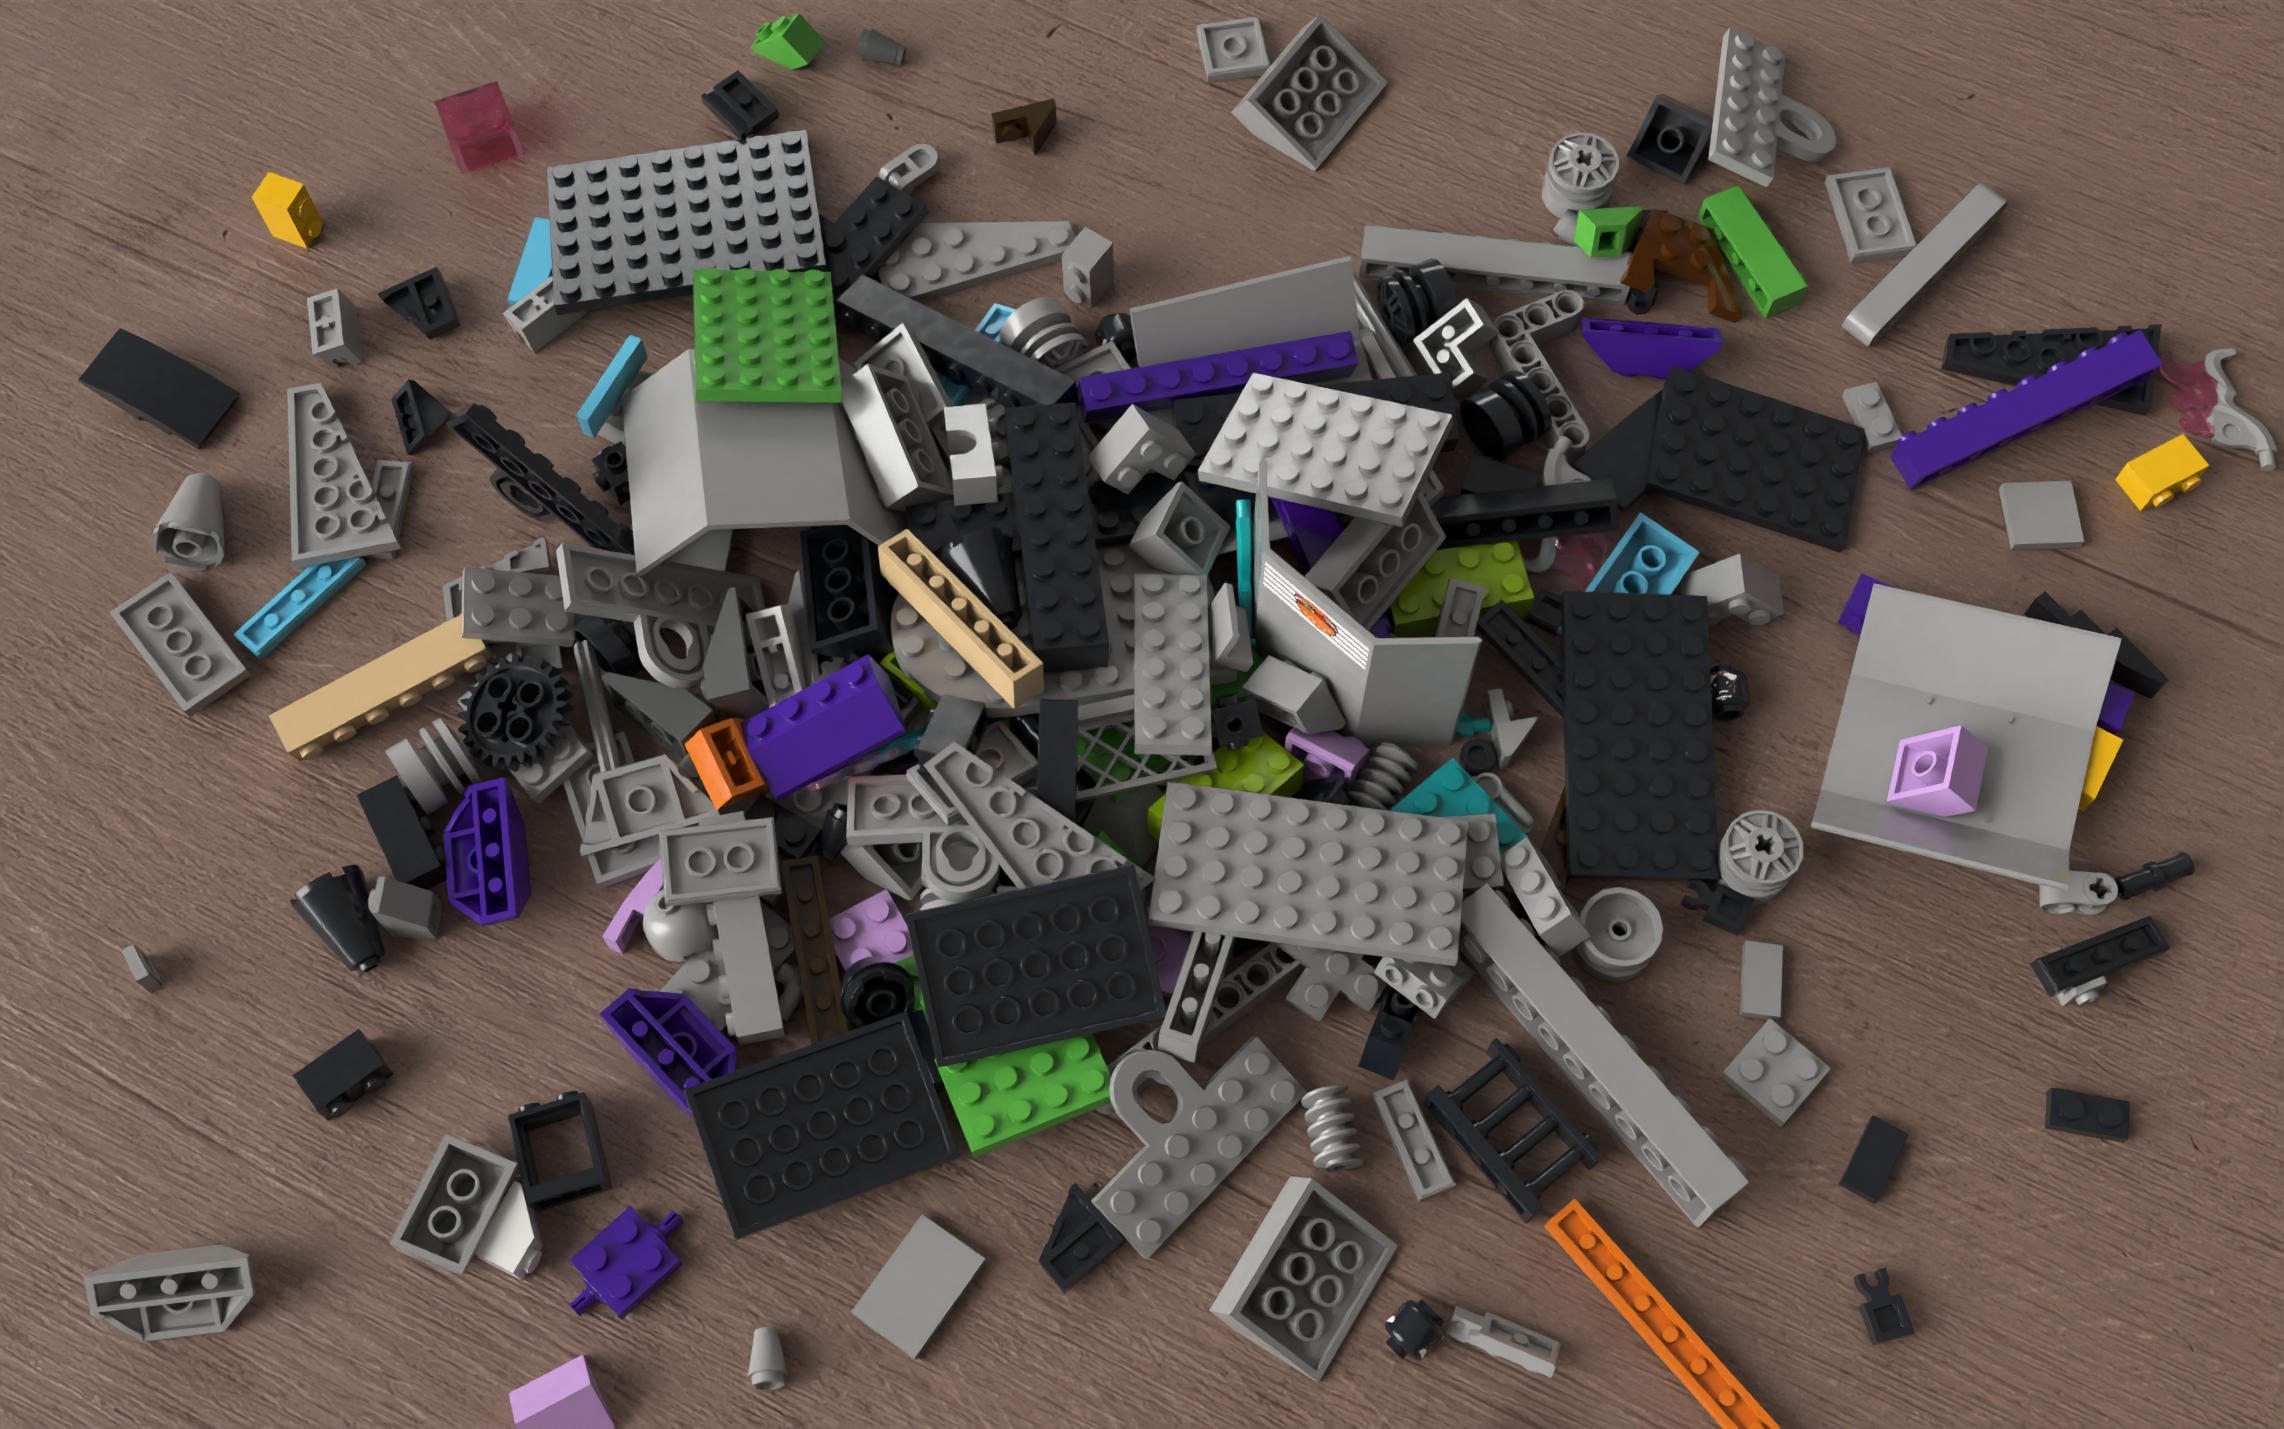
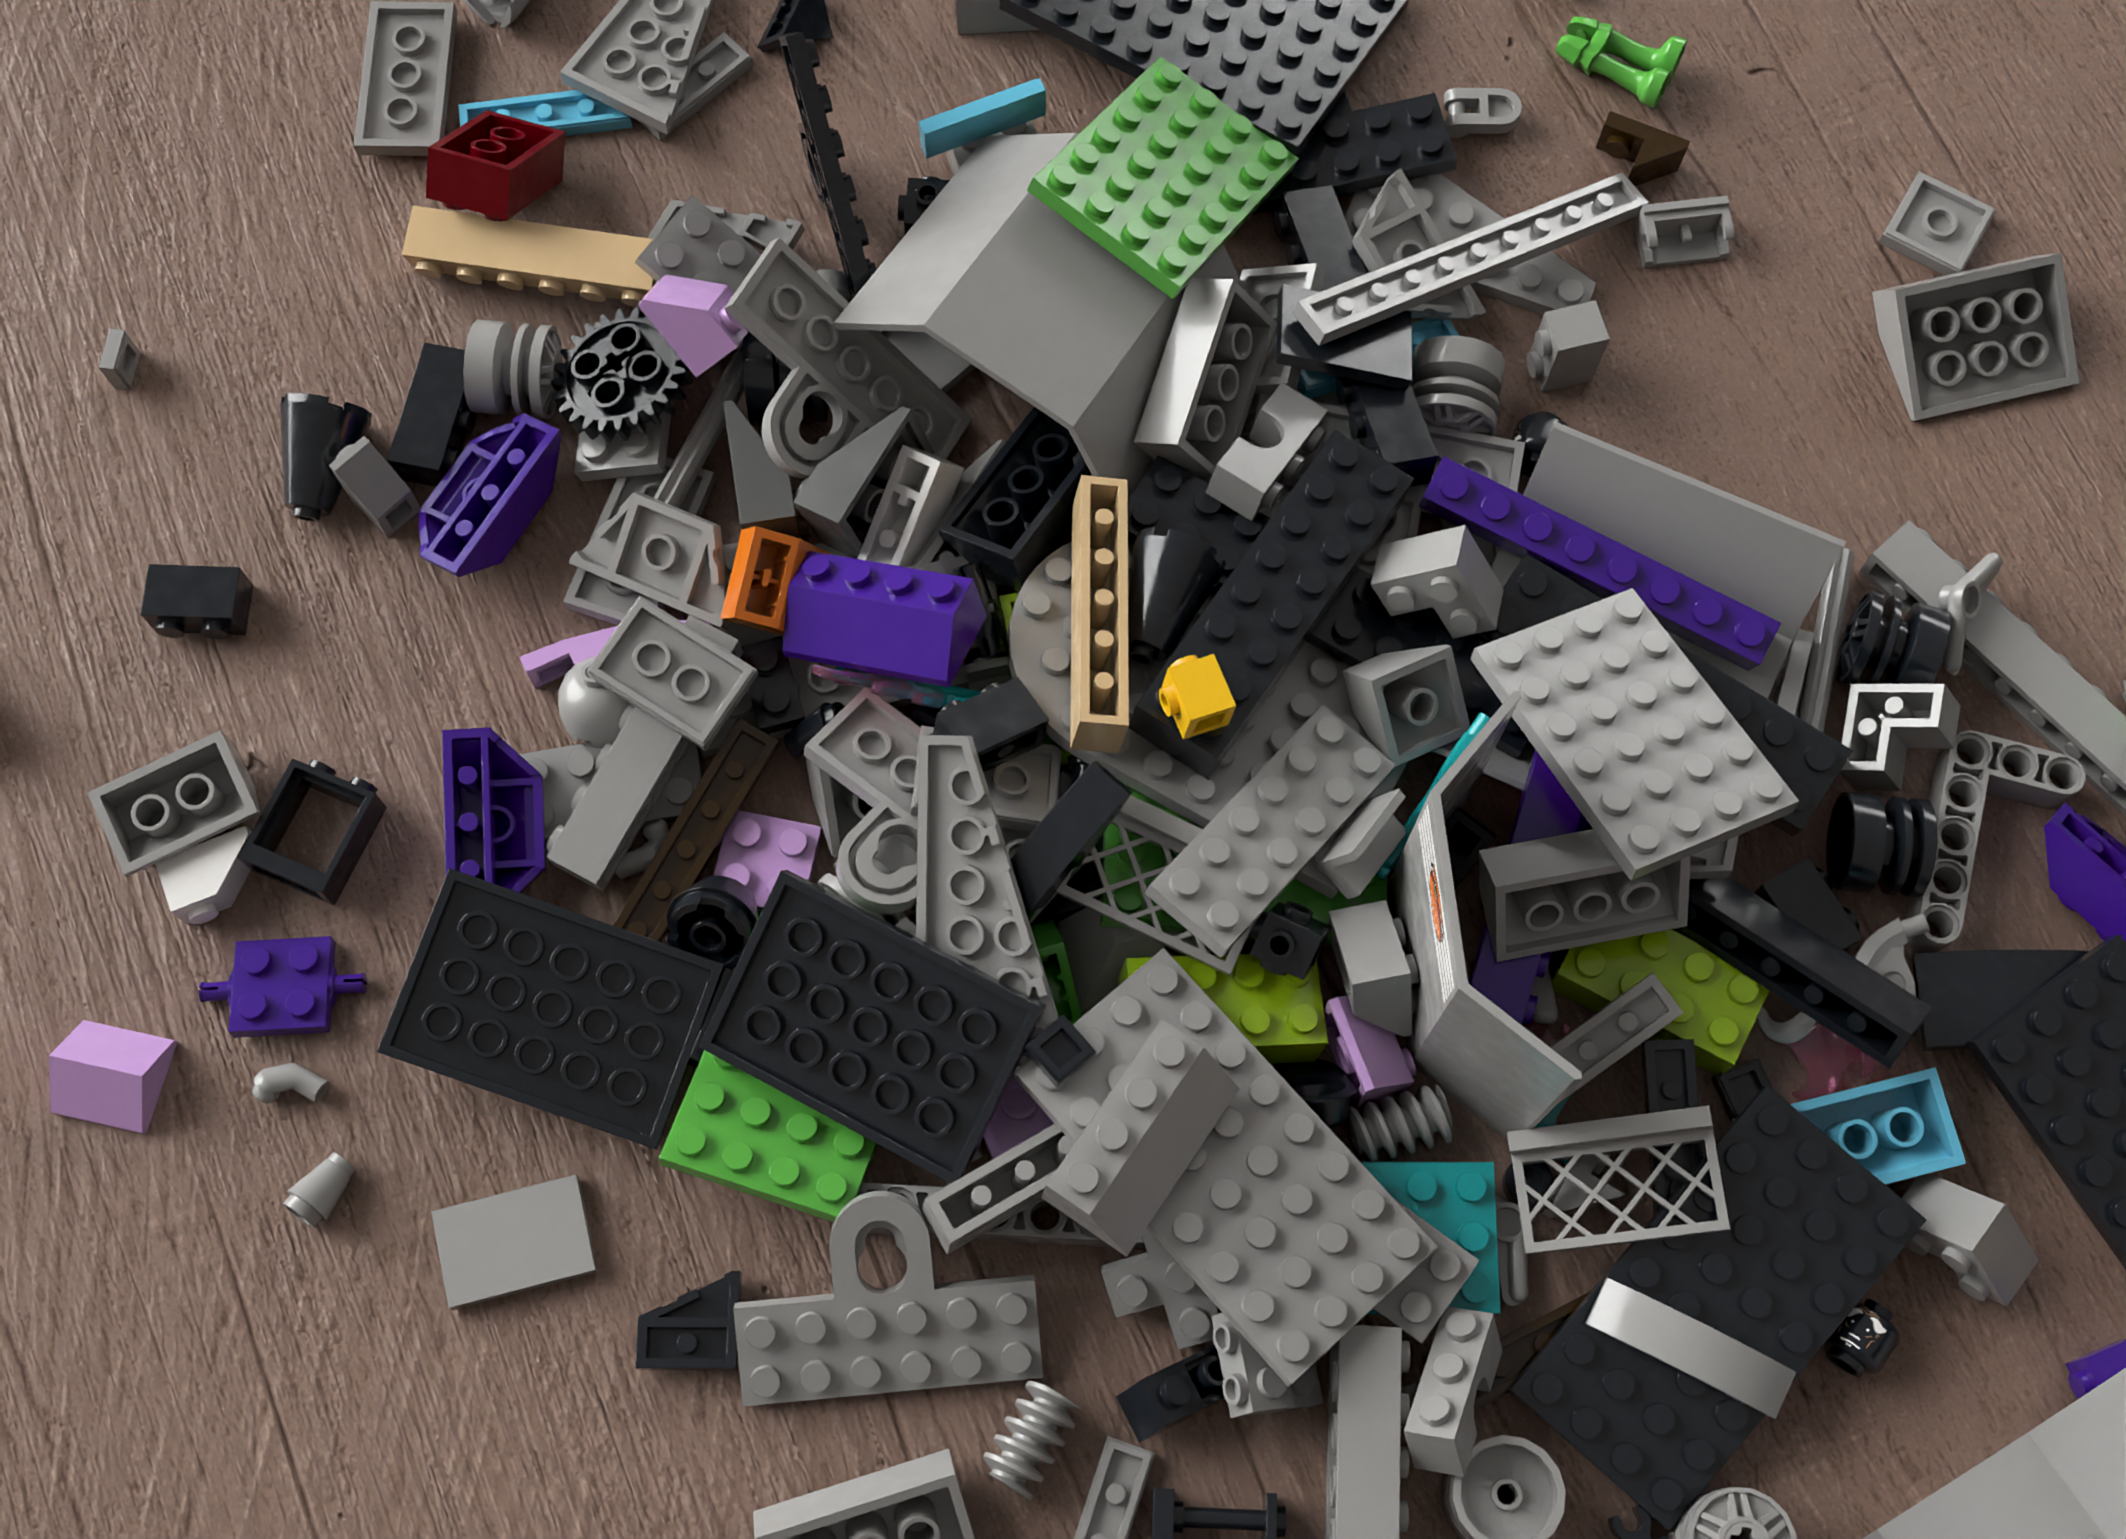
camera: 40 degrees right, 5 degrees up
(305, 648) = (495, 165): none -> dark red brick
(542, 637) = (693, 319): none -> lavender slope
(681, 1312) = (285, 1077): none -> light grey arm
(940, 84) = (1589, 42): none -> bright green piece
(950, 282) = (1400, 228): none -> light grey wing
(958, 353) = (1371, 354): none -> black tile
(988, 257) = (1467, 259): none -> light grey plate
(1069, 613) = (1196, 695): none -> yellow brick
(1093, 154) = (1684, 231): none -> light grey hinge
(1164, 883) = (1060, 1051): none -> black tile
(1255, 891) = (1141, 1138): none -> light grey slope
(1436, 248) = (1964, 602): none -> light grey piece
(1506, 686) = (1609, 1137): none -> light grey fence
(1645, 765) = (1691, 1347): none -> light grey slope

